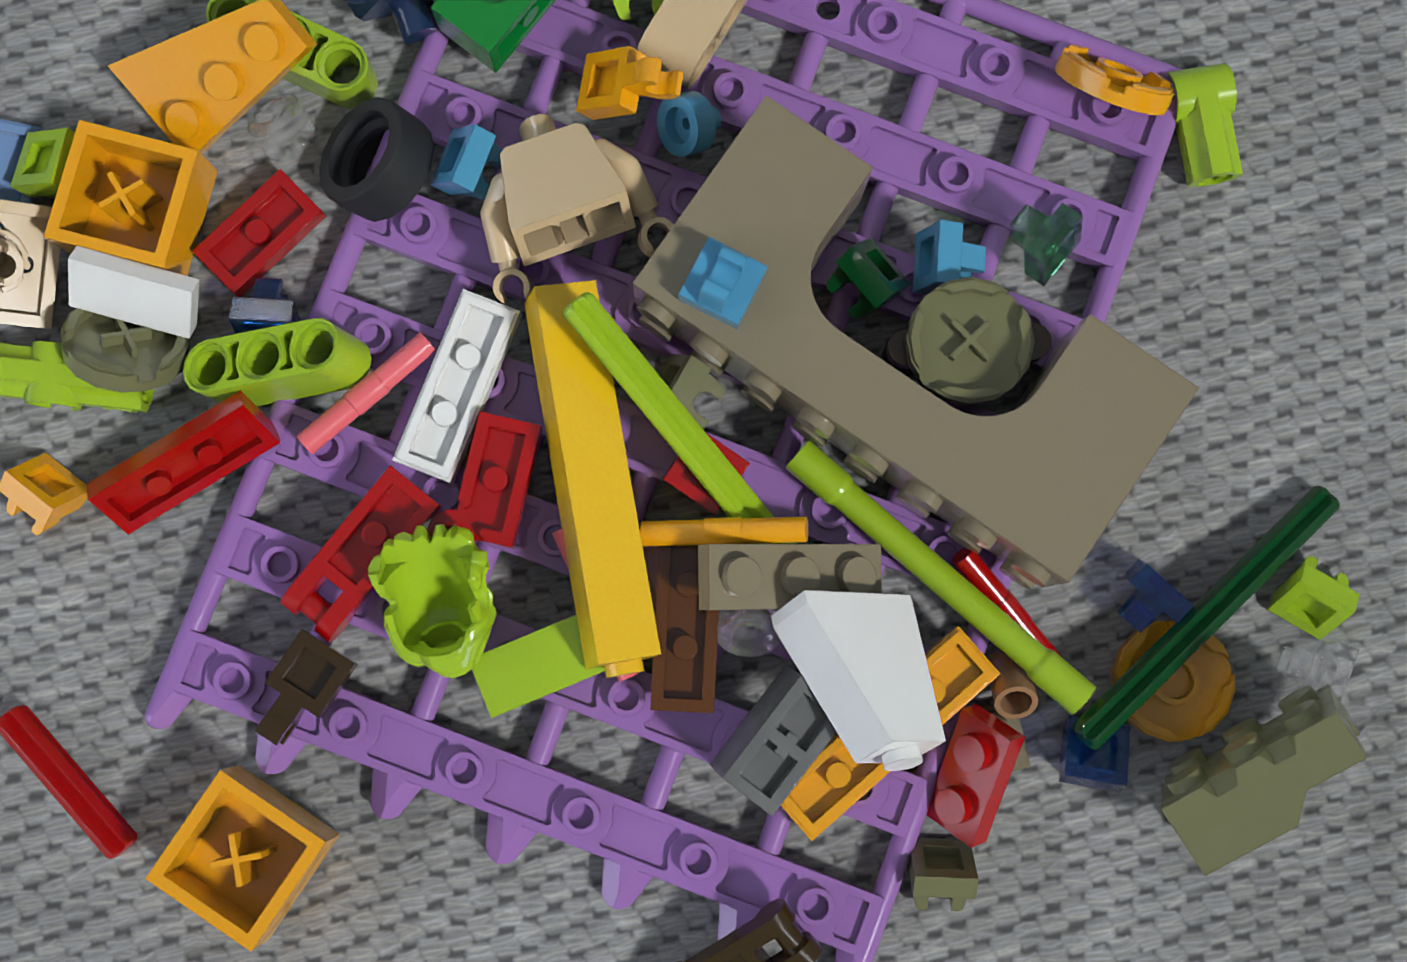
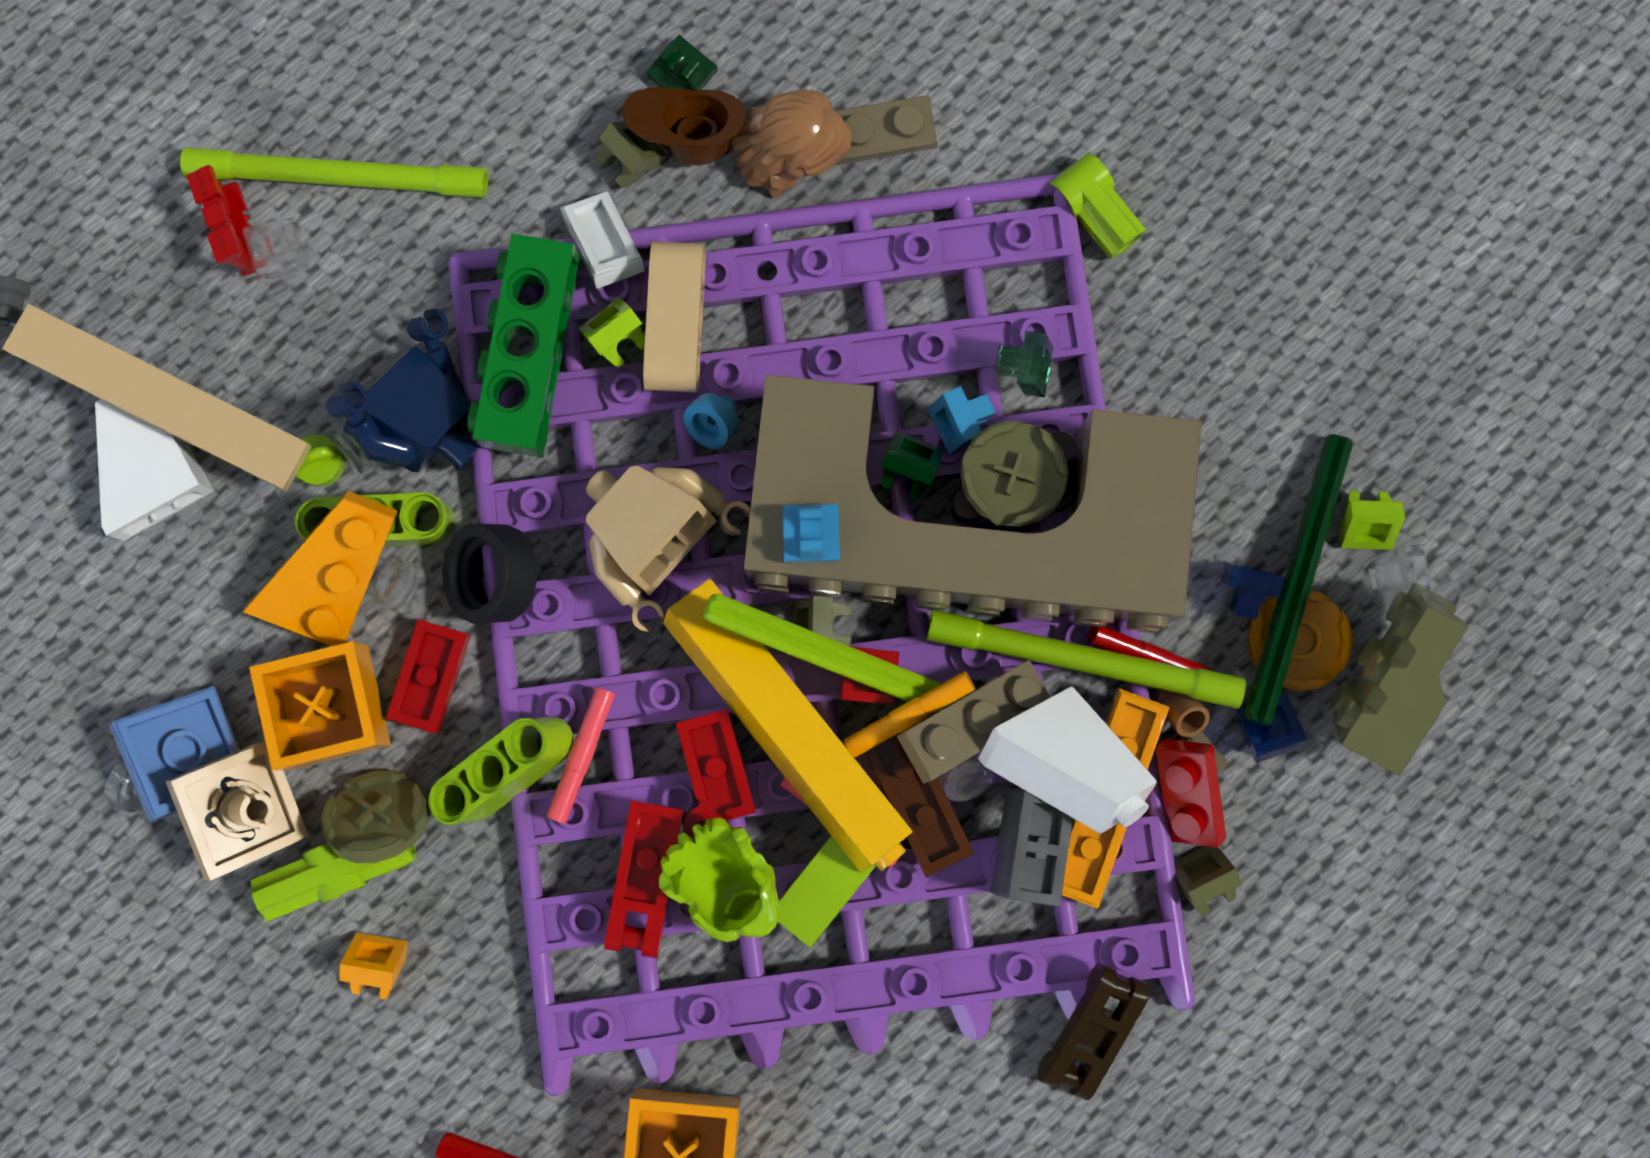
camera: 20 degrees left, 0 degrees up
(42, 162) = (235, 712): lime tile -> none
(133, 292) = (361, 775): white tile -> none
(183, 463) = (469, 883): red plate -> none
(264, 308) = (468, 733): tile -> none
(308, 679) = (656, 994): dark brown plate -> none
(457, 386) = (646, 712): white tile -> none
(463, 162) = (559, 539): dark azure tile -> none
(618, 77) = (641, 416): light orange plate -> none
(1115, 82) = (1014, 214): light orange tile -> none

